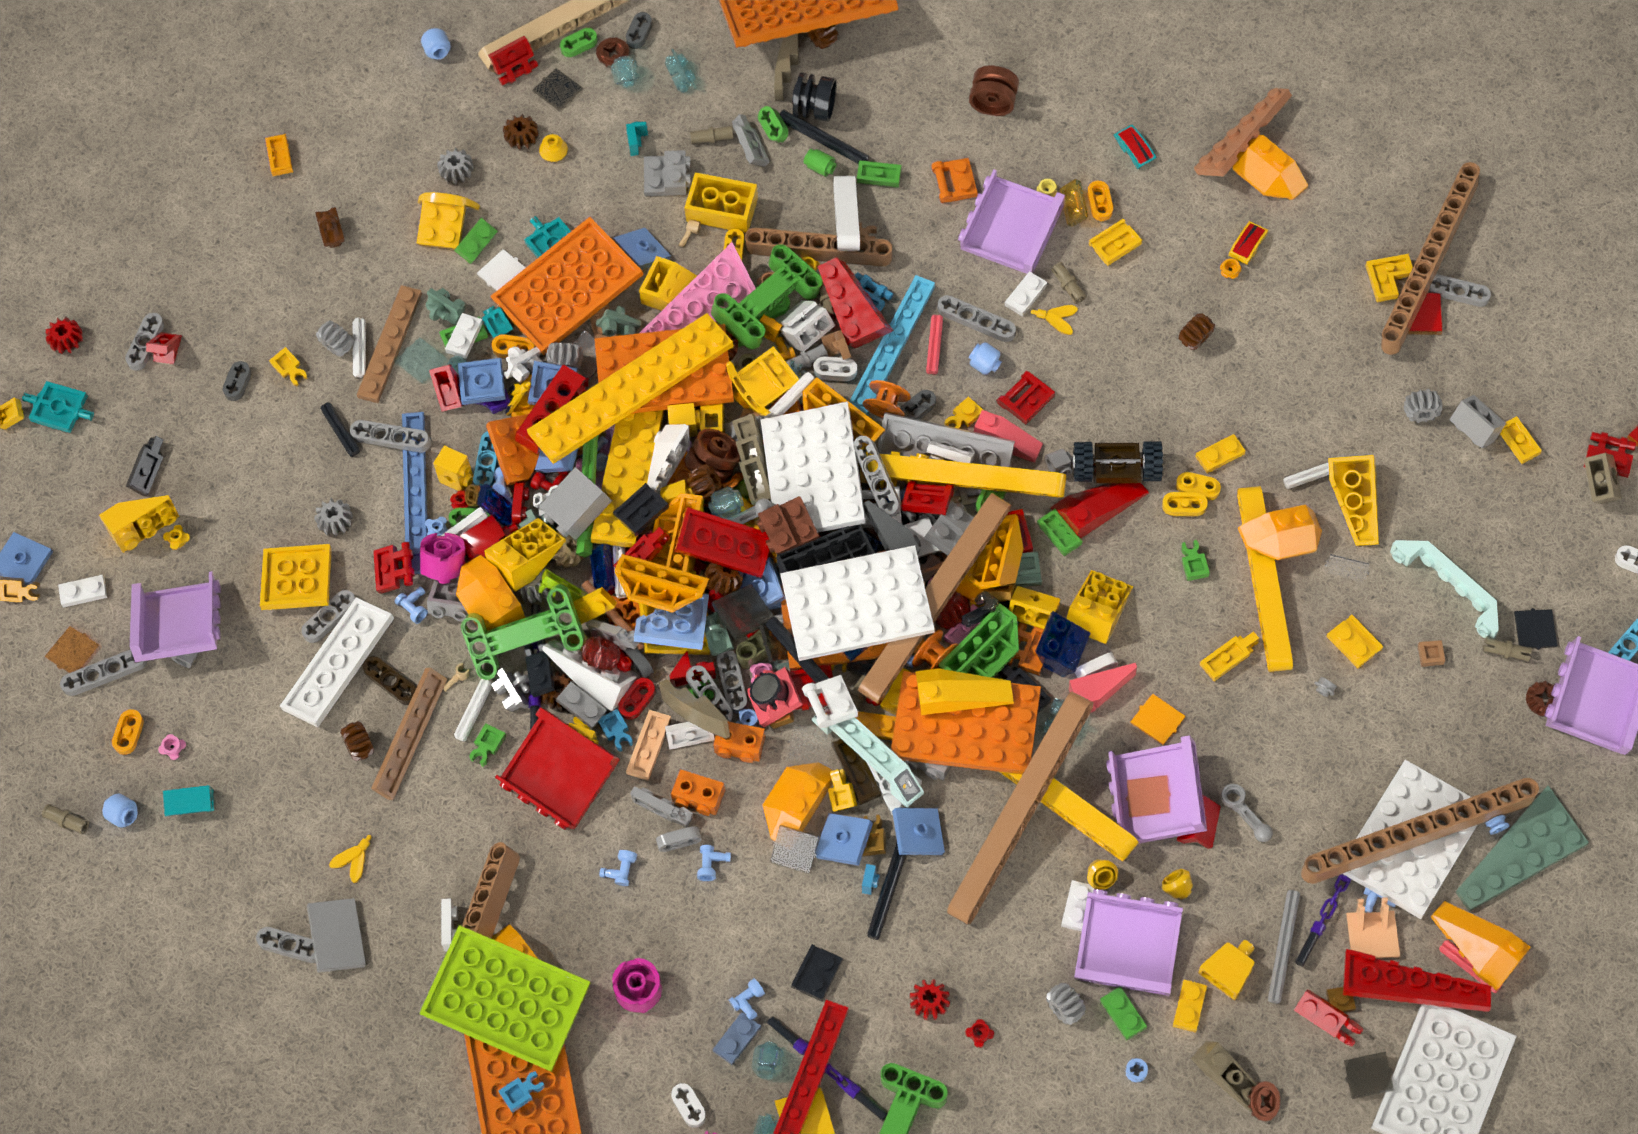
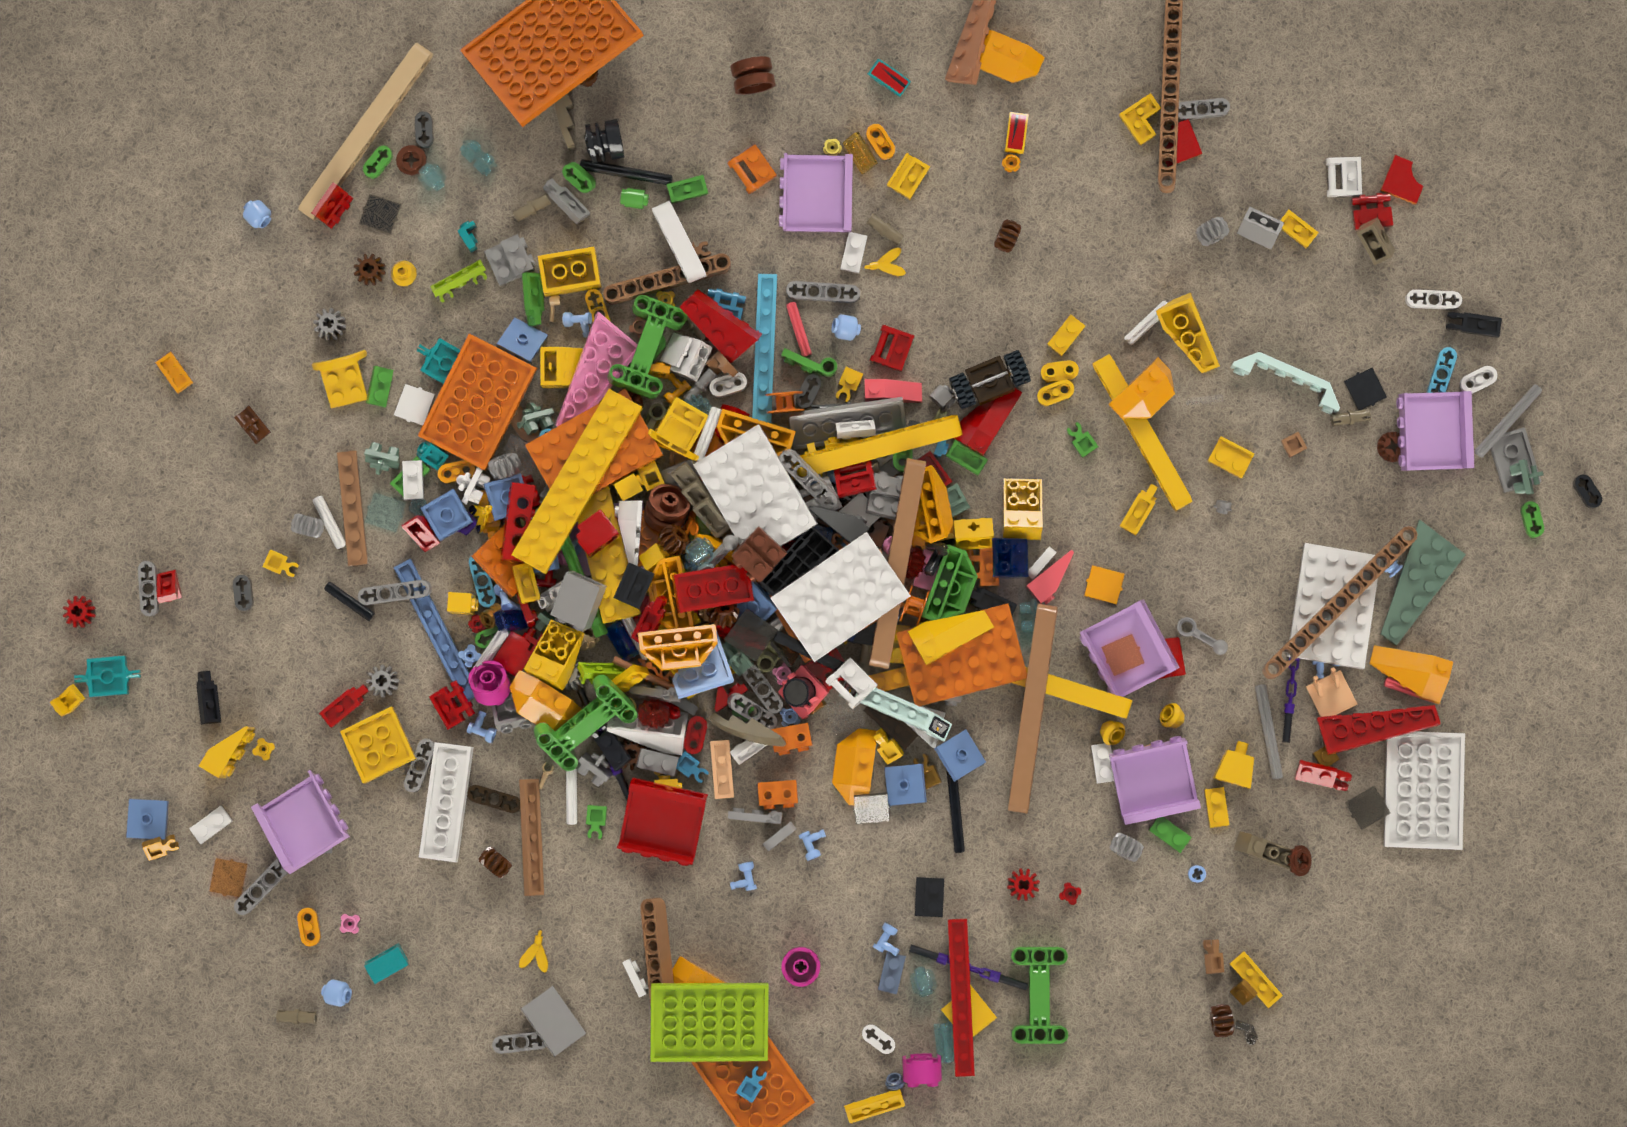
camera: 20 degrees left, 20 degrees up
(281, 526) = (343, 705): none -> red hinge
(530, 472) = (526, 583): none -> yellow plate
(605, 173) = (458, 279): none -> lime plate
(625, 445) = (596, 533): none -> red piece
(672, 215) = (533, 297): none -> bright green hinge
(699, 249) = (569, 319): none -> light blue piece
(870, 879) = (940, 808): dark azure plate -> none
(930, 380) = (808, 365): none -> bright green plate
(1037, 508) = (941, 448): none -> dark azure plate
(1598, 410) = (1350, 176): none -> white plate

